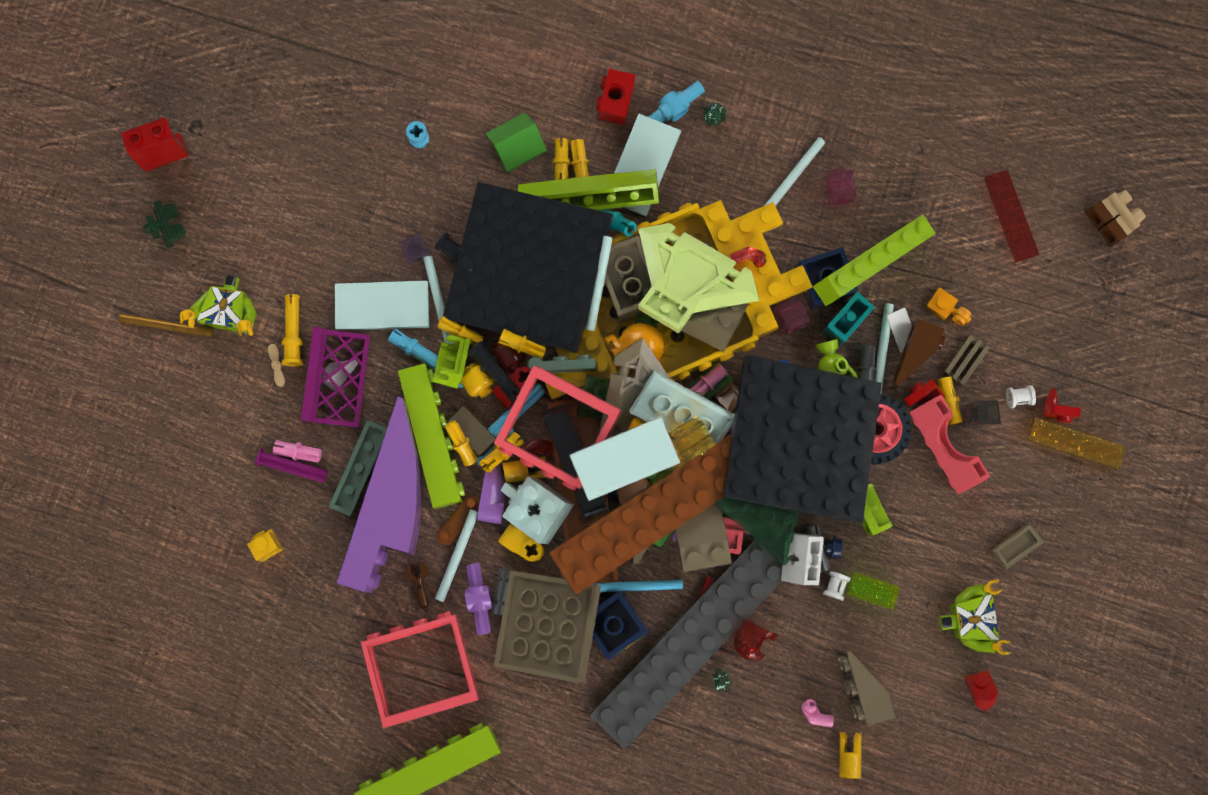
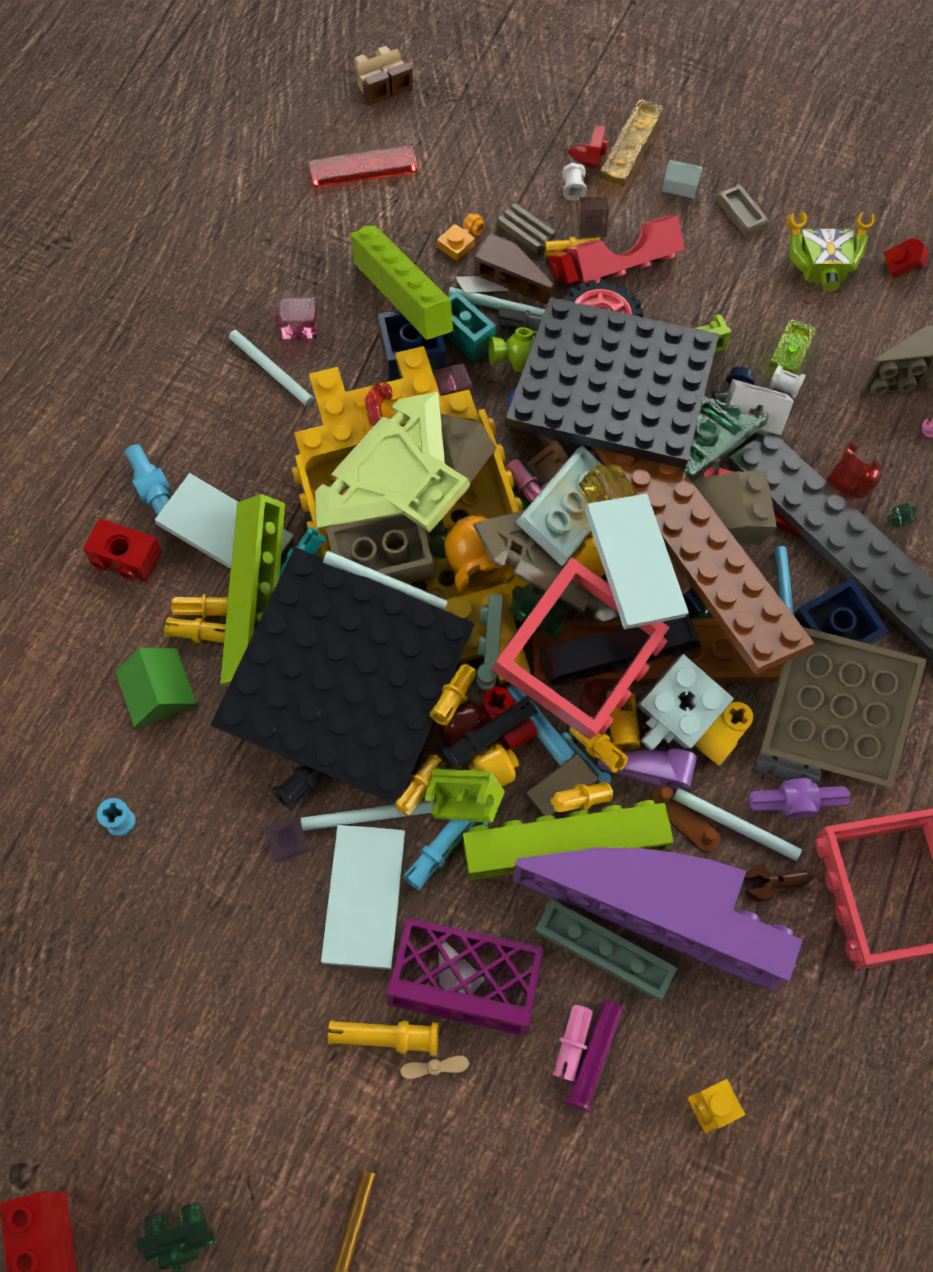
camera: 80 degrees left, 15 degrees down
(223, 308) = (335, 1142): torso -> none
(715, 114) = (173, 440): clear green plate -> none
(1040, 490) = (681, 179): none -> light aqua piece

